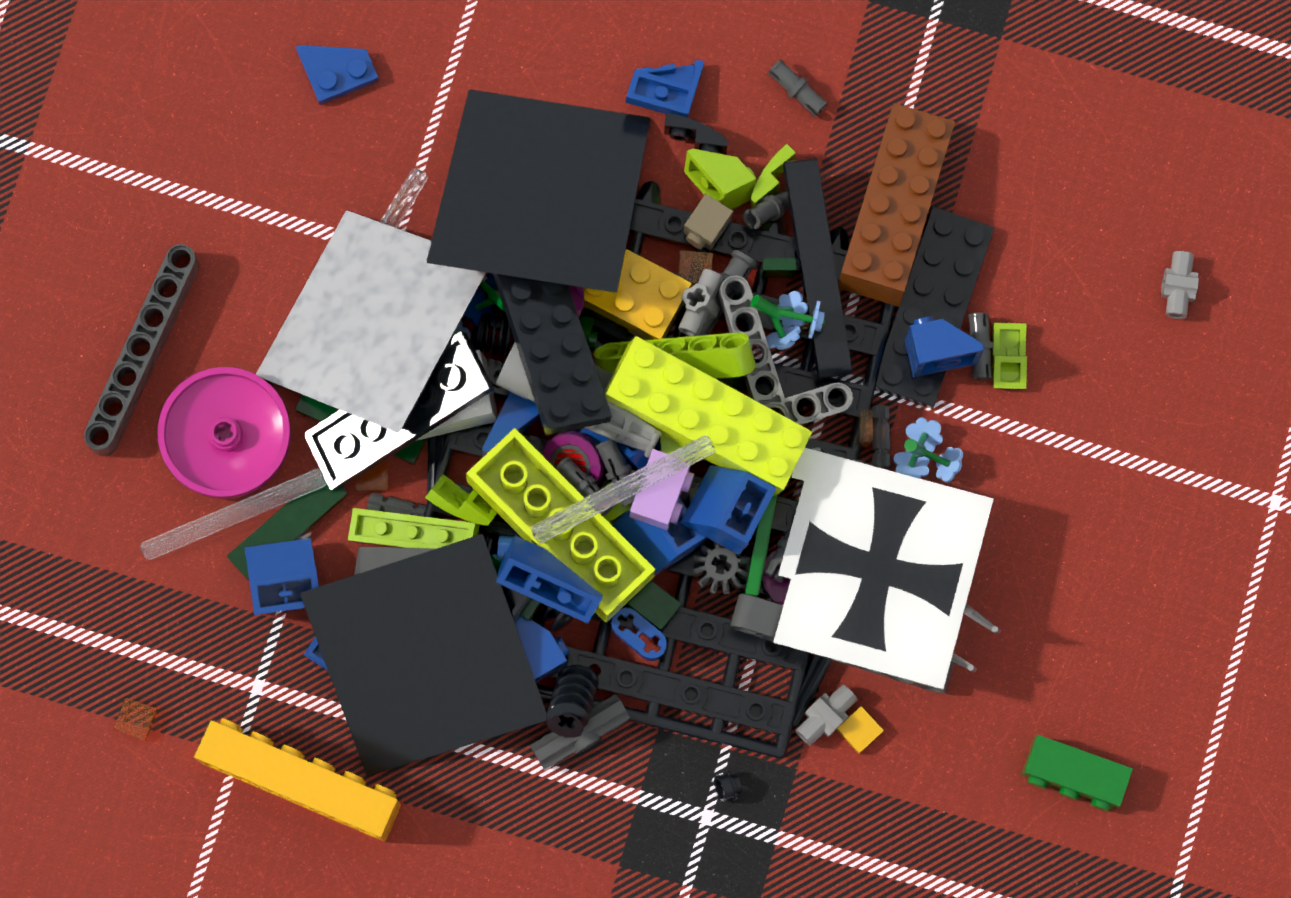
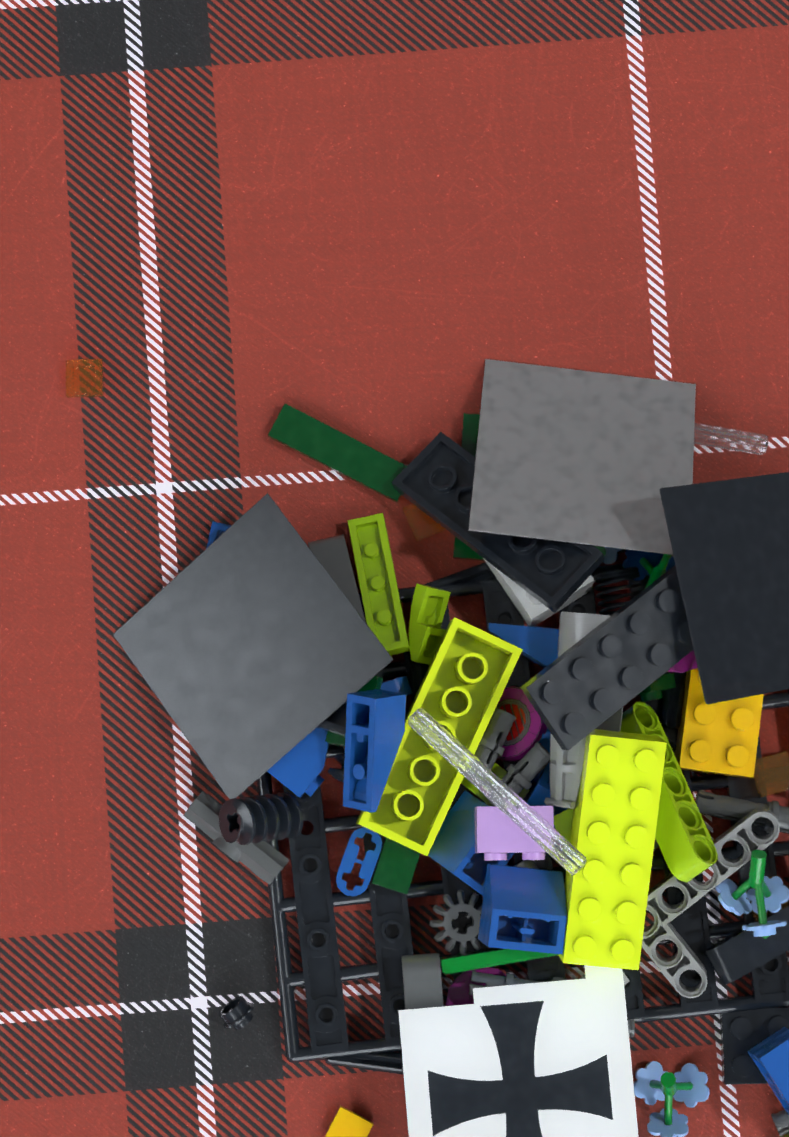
camera: 65 degrees right, 5 degrees up
(140, 334) = (482, 225): dark grey beam -> none
(224, 432) = (410, 350): dark pink dish -> none
(233, 514) = (330, 393): clear axle -> none
(280, 574) = (282, 465): blue slope -> none
(297, 780) = (77, 566): yellow brick -> none
(379, 503) = (401, 555): dark grey axle -> none
(700, 303) = (723, 795): light grey axle -> none
(826, 715) = (350, 1090): light grey axle -> none
(865, 428) = (672, 1020): clear orange tile -> none
(881, 436) = (669, 1038): dark grey axle -> none

